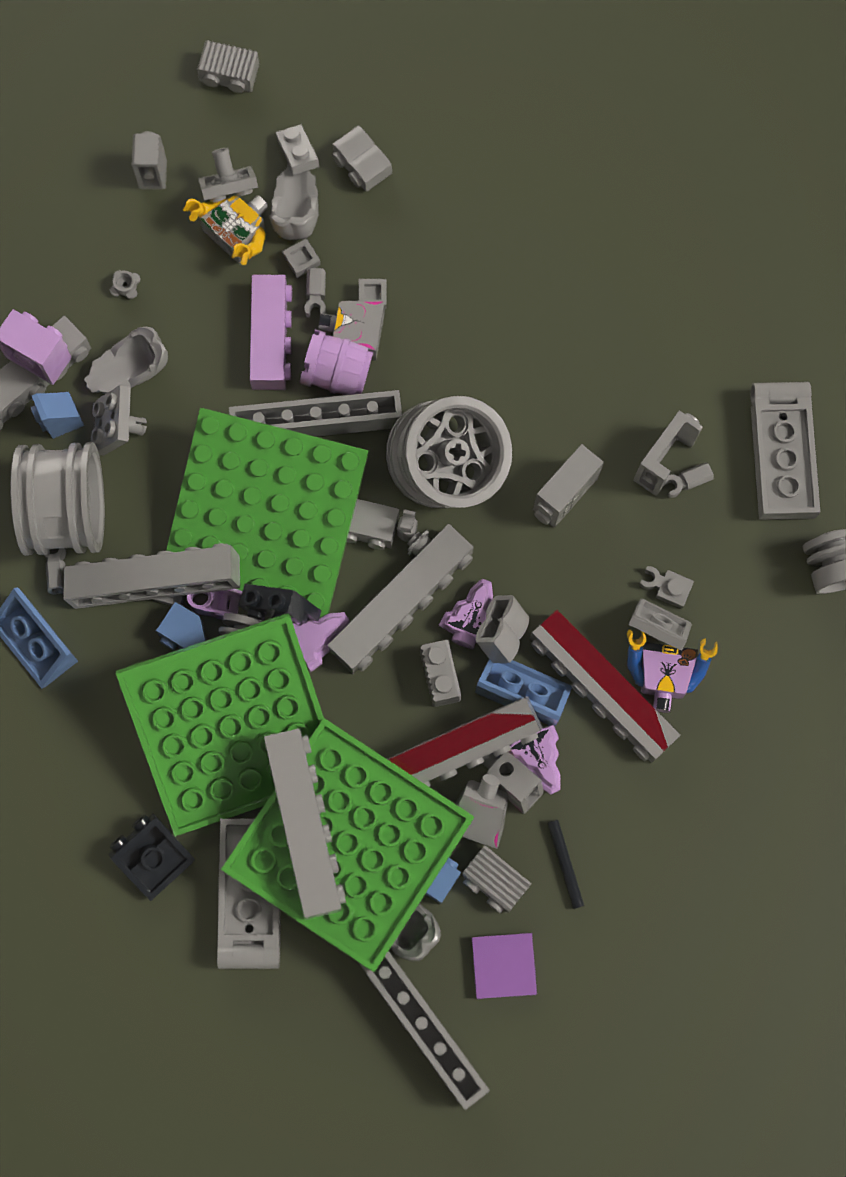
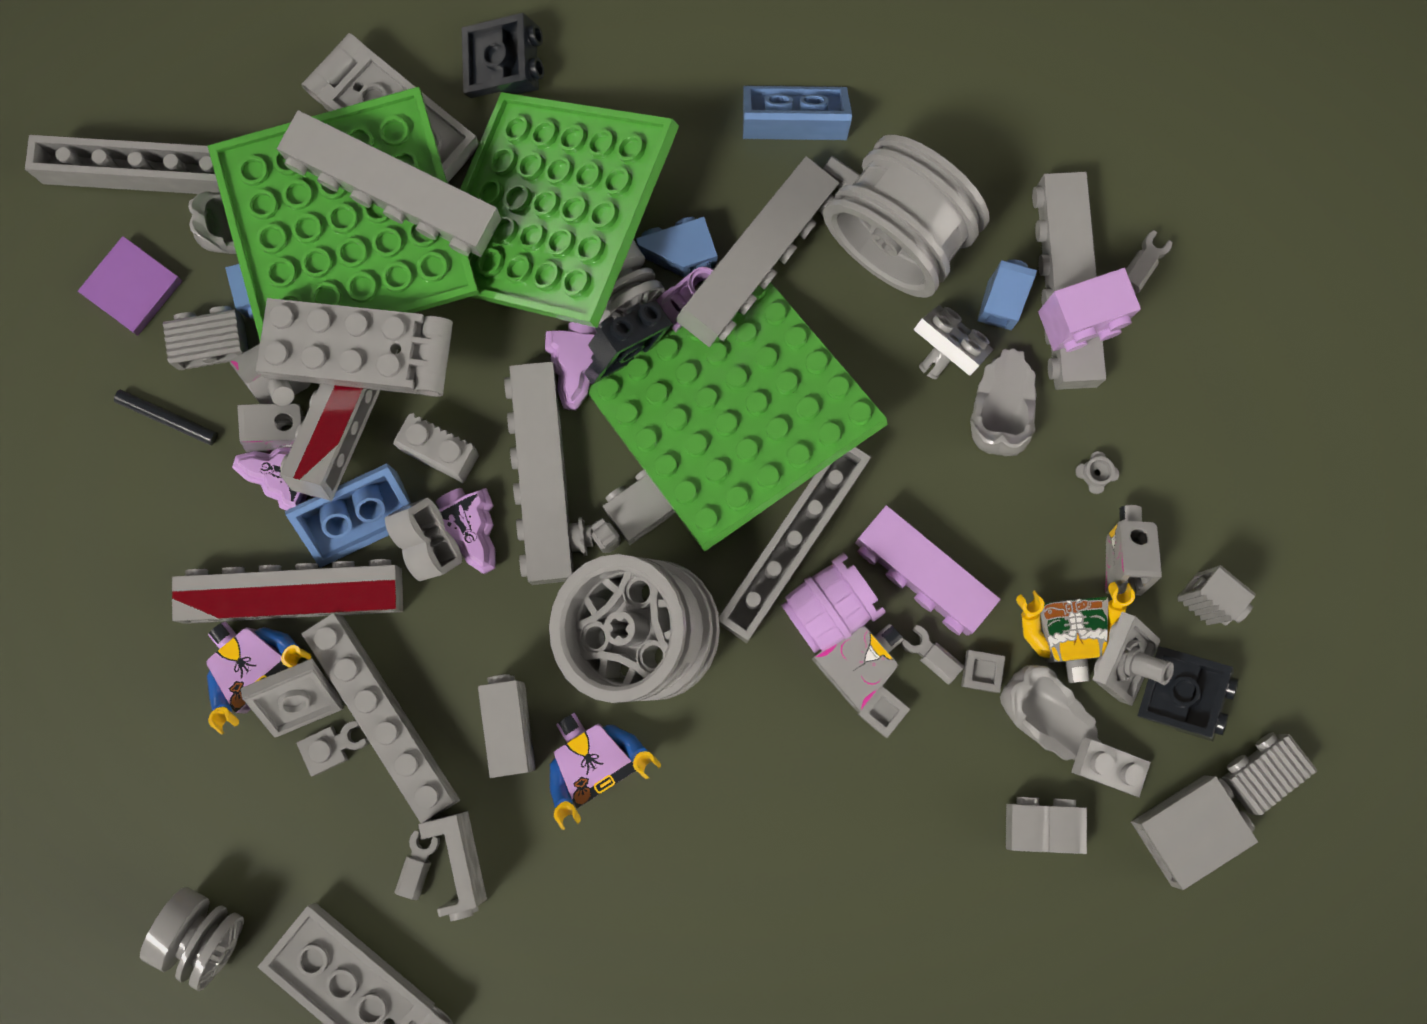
camera: 130 degrees right, 5 degrees up
(160, 225) = (1132, 552): none -> light grey torso
(217, 131) = (1192, 697): none -> black plate
(295, 81) = (1195, 831): none -> light grey brick
(424, 755) = (354, 347): none -> light grey hinge
(544, 426) = (592, 764): none -> torso
(625, 567) = (380, 717): none -> light grey brick

